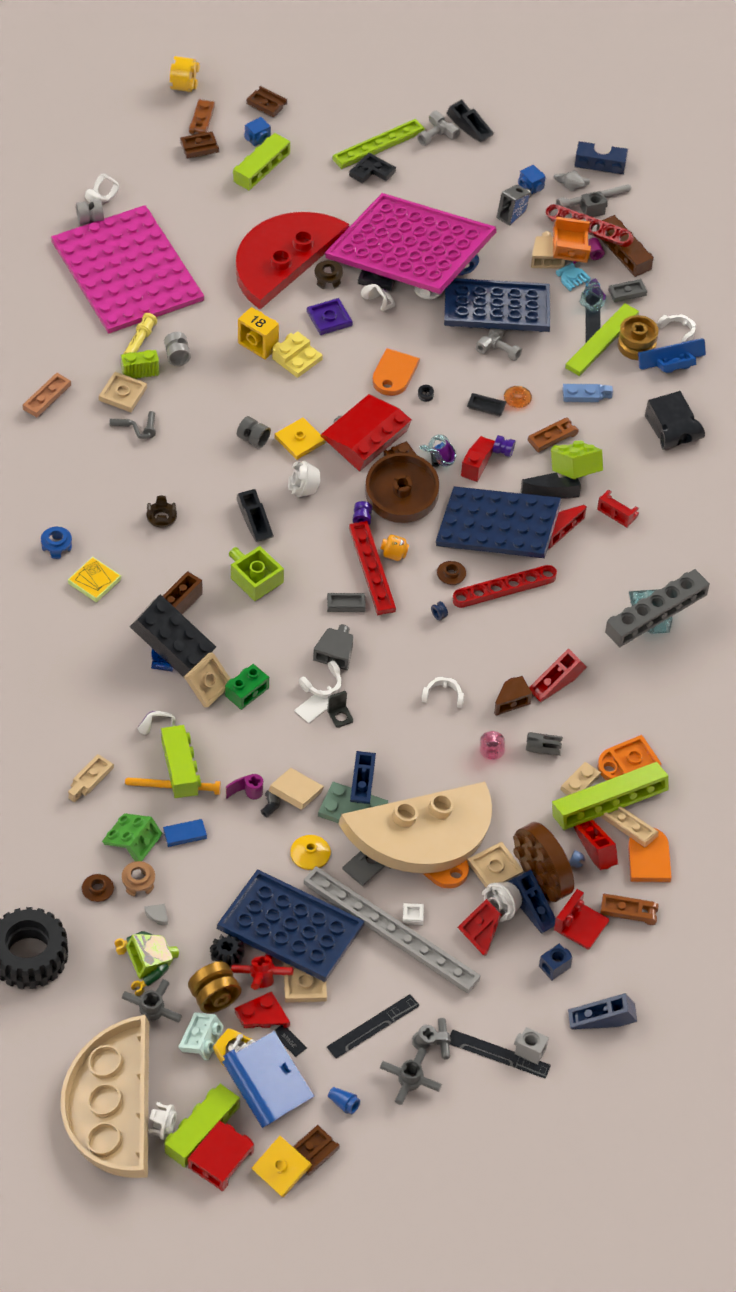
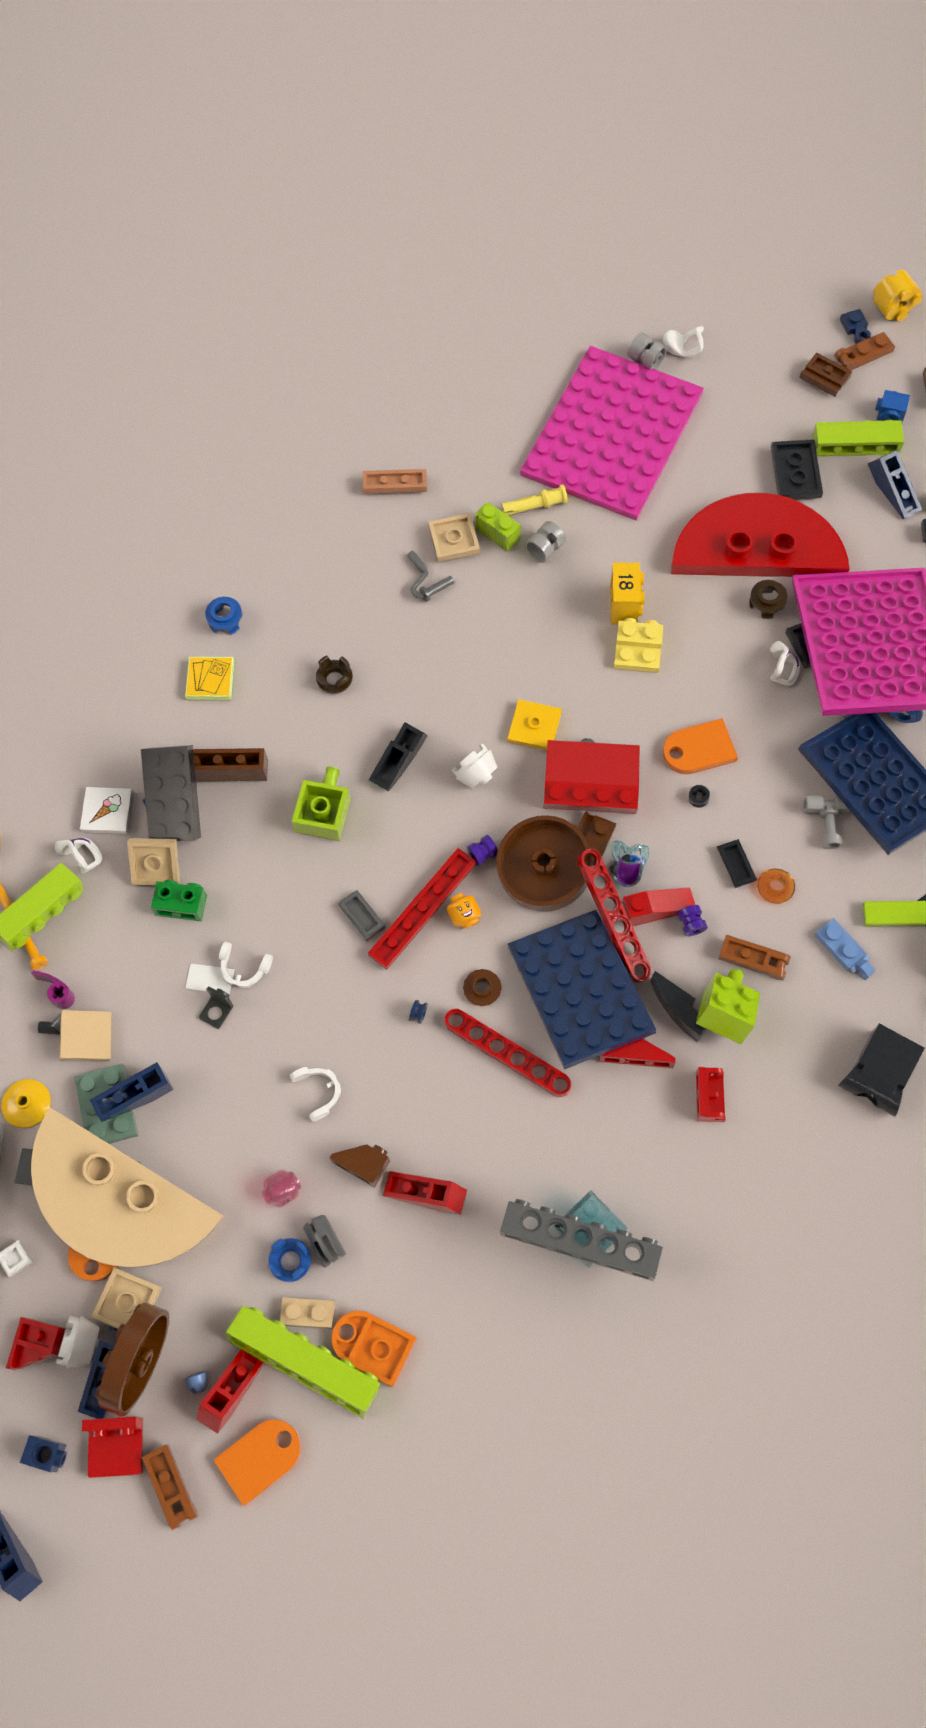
camera: 60 degrees right, 15 degrees up
(138, 690) = (106, 810): none -> white tile
(178, 108) = (856, 324): none -> dark blue plate
(252, 202) = (796, 469): none -> black plate
(253, 432) = (500, 680): dark grey wheel -> none
(310, 166) = (895, 483): none -> dark blue slope
(329, 316) = (717, 639): dark purple tile -> none
(335, 646) = (291, 947): dark grey torso -> none
(469, 472) = (617, 913): none -> red beam
(540, 760) = (281, 1247): none -> blue piece
(631, 826) = (281, 1413): tan tile -> none

